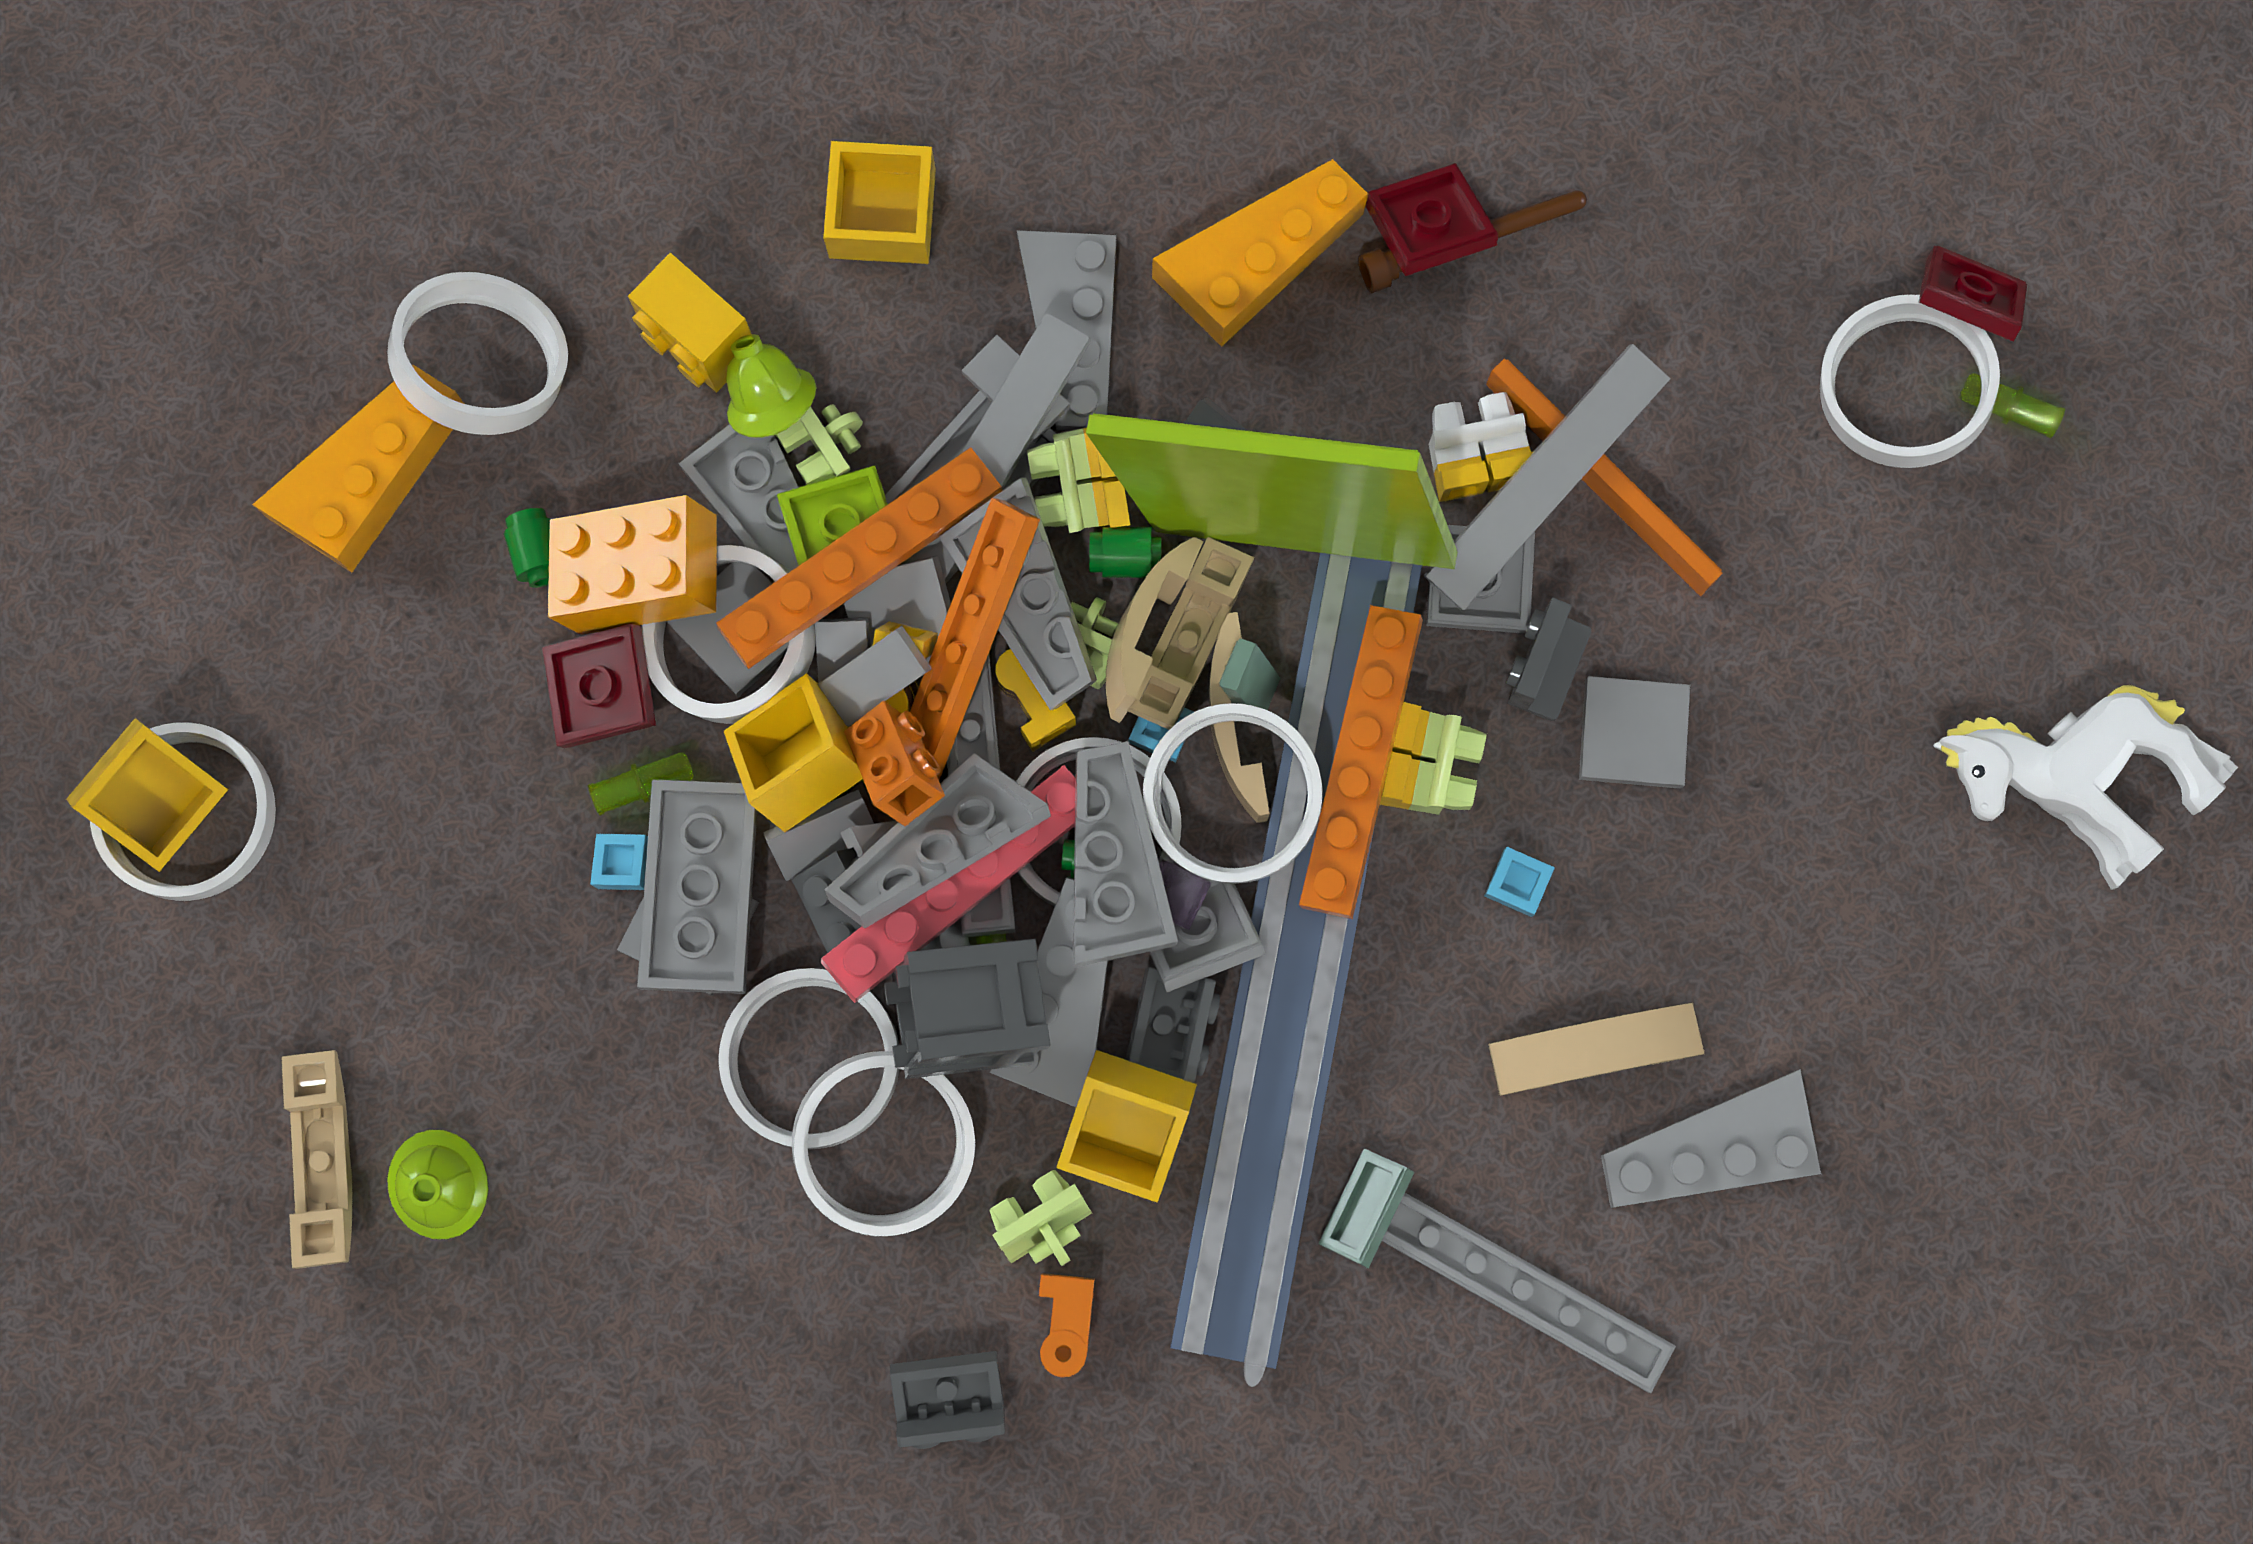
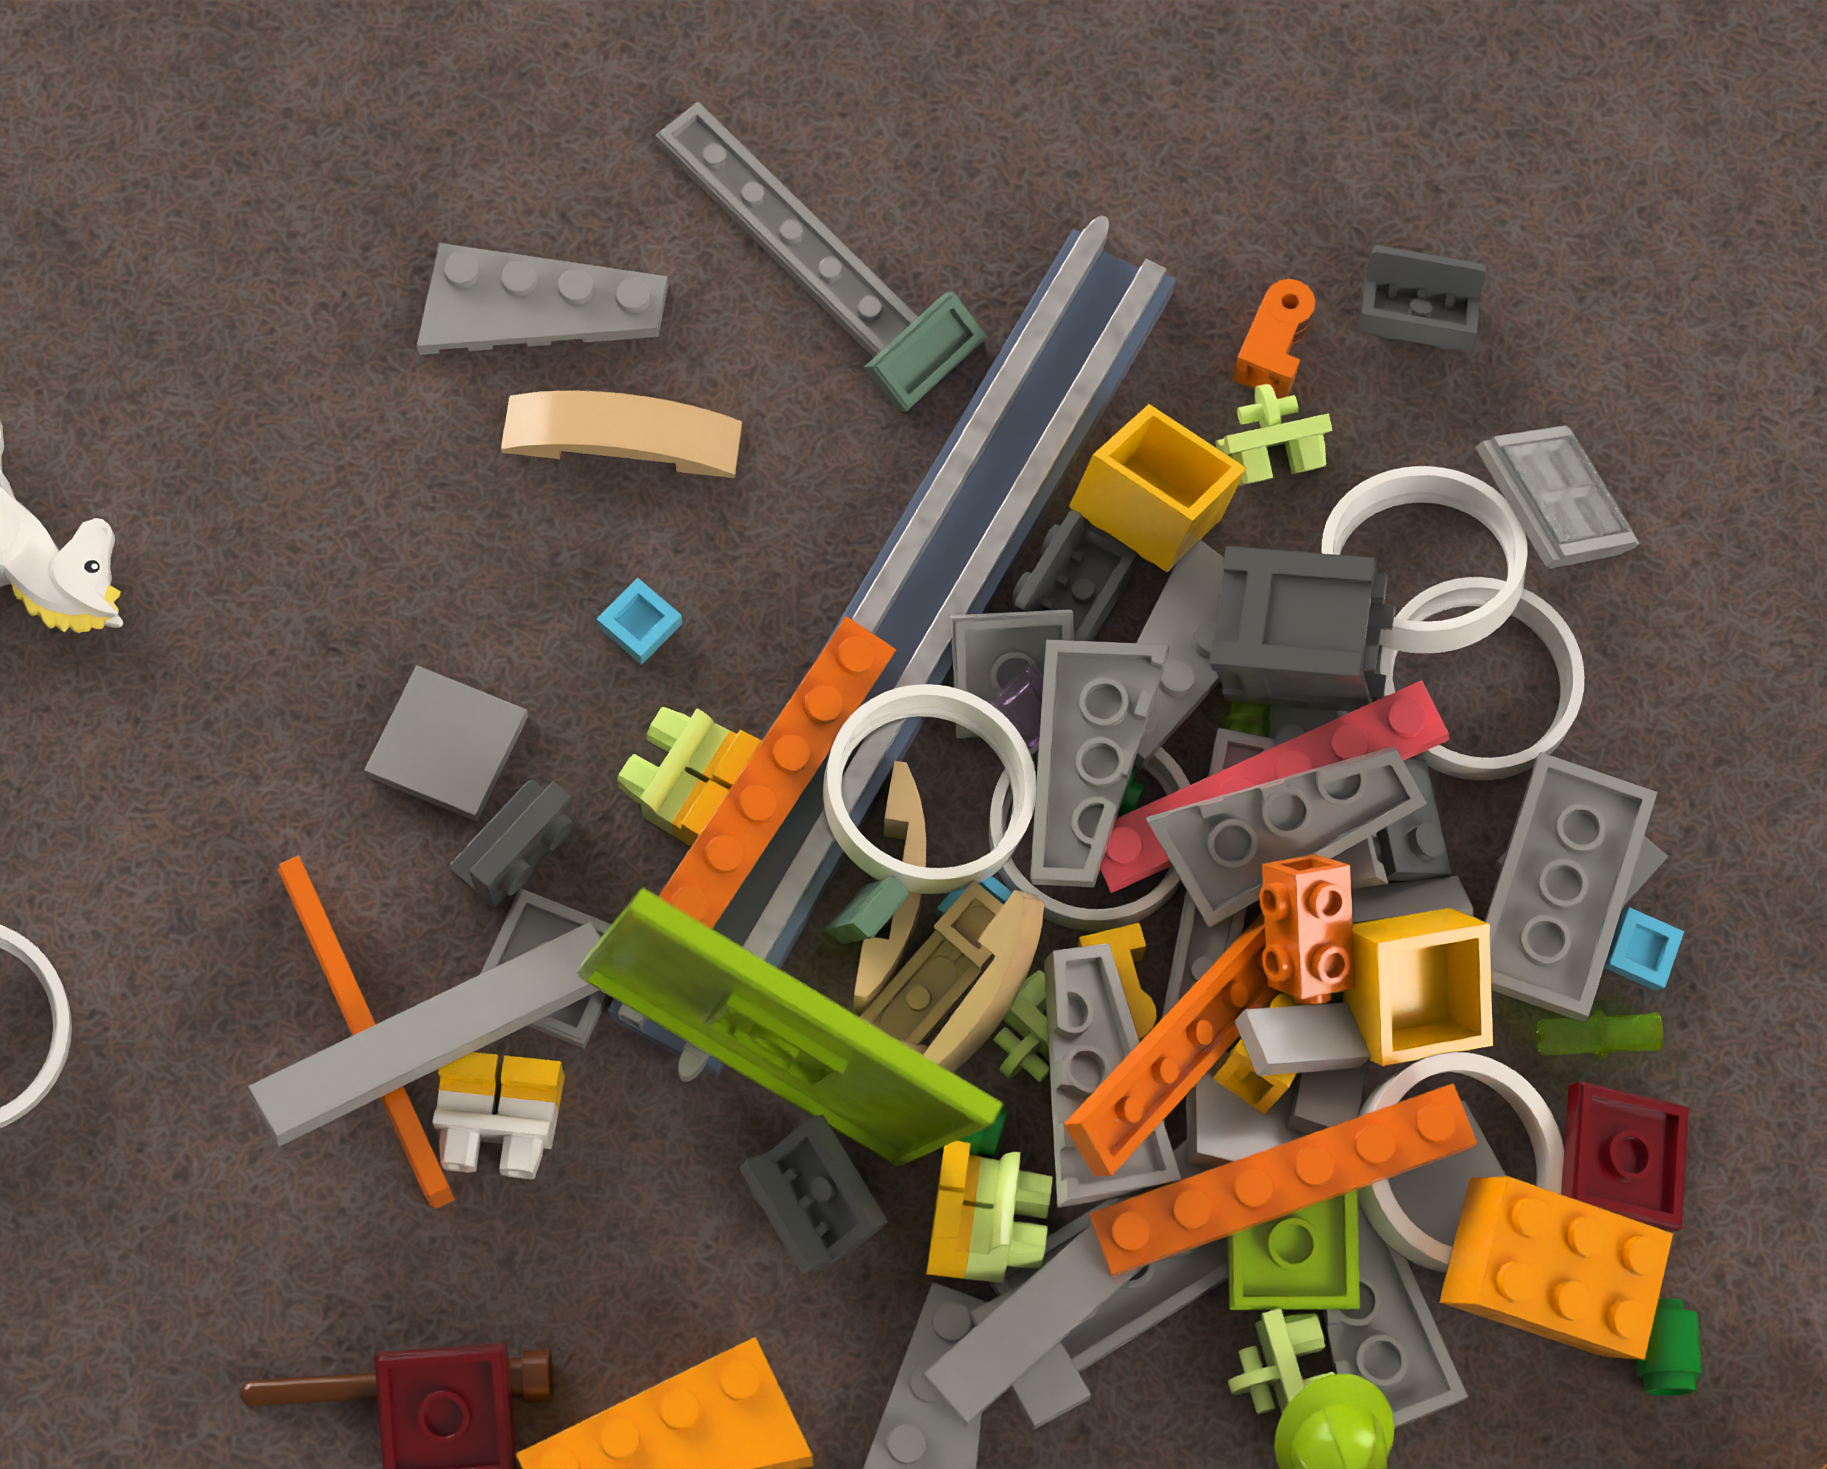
camera: 165 degrees left, 10 degrees down
(782, 1240) = (1557, 496): none -> piece

